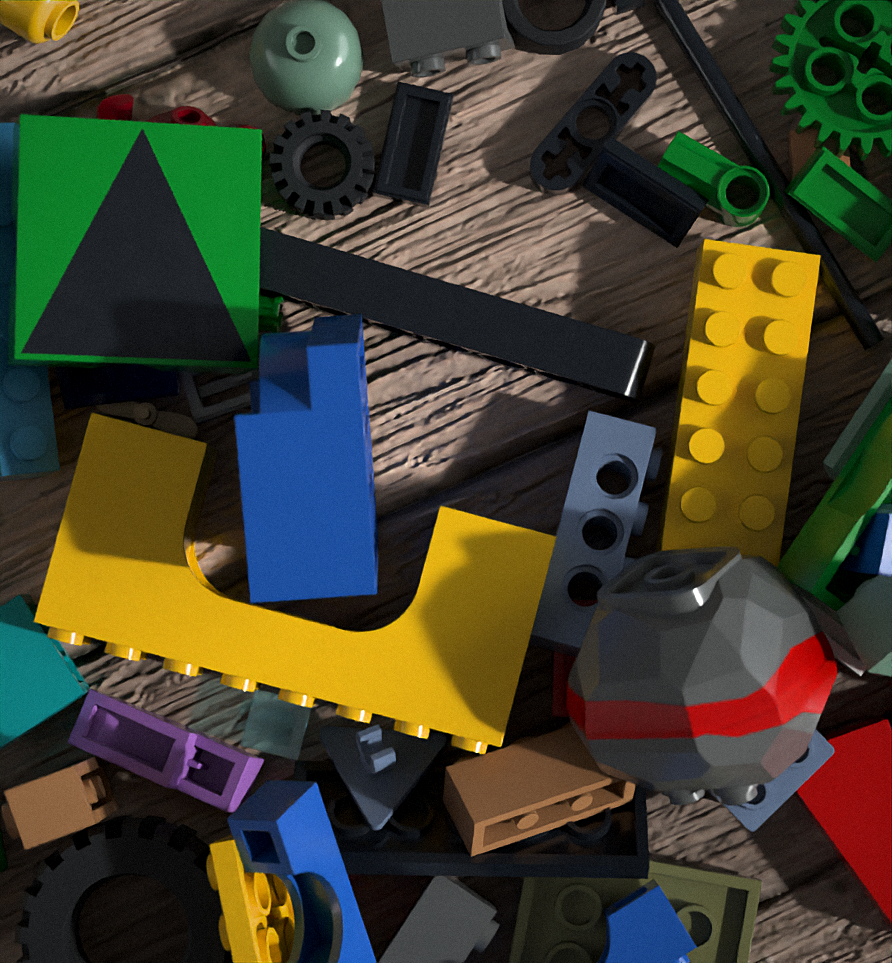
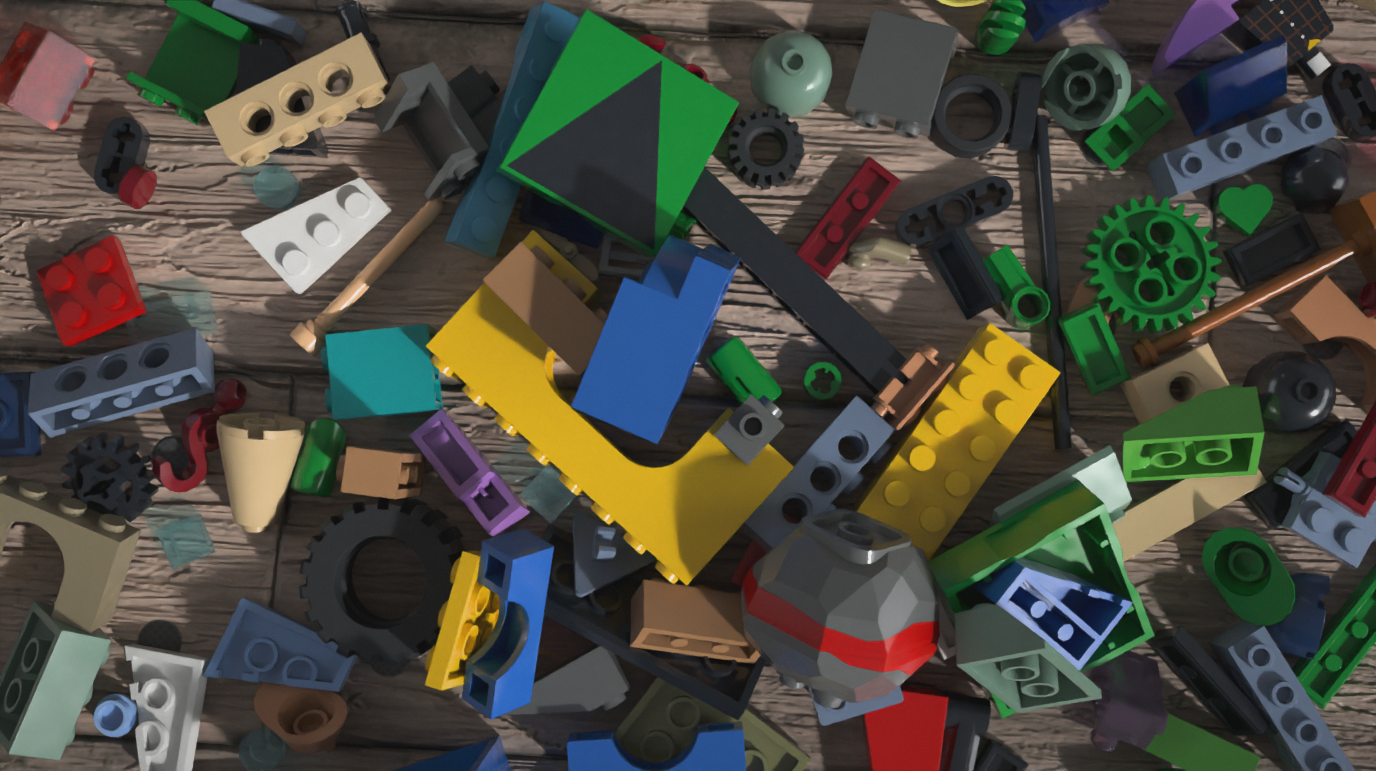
camera: 30 degrees right, 0 degrees up
(159, 494) = (548, 304): none -> medium nougat brick
(413, 144) = (830, 166): black tile -> none
(439, 457) = (742, 371): none -> green arm
(466, 198) = (847, 217): none -> dark red tile
(479, 517) = (750, 428): none -> dark grey brick
(522, 215) = (877, 247): none -> dark tan arm
(556, 413) = (833, 386): none -> green bush
(660, 346) = (926, 374): none -> nougat hinge

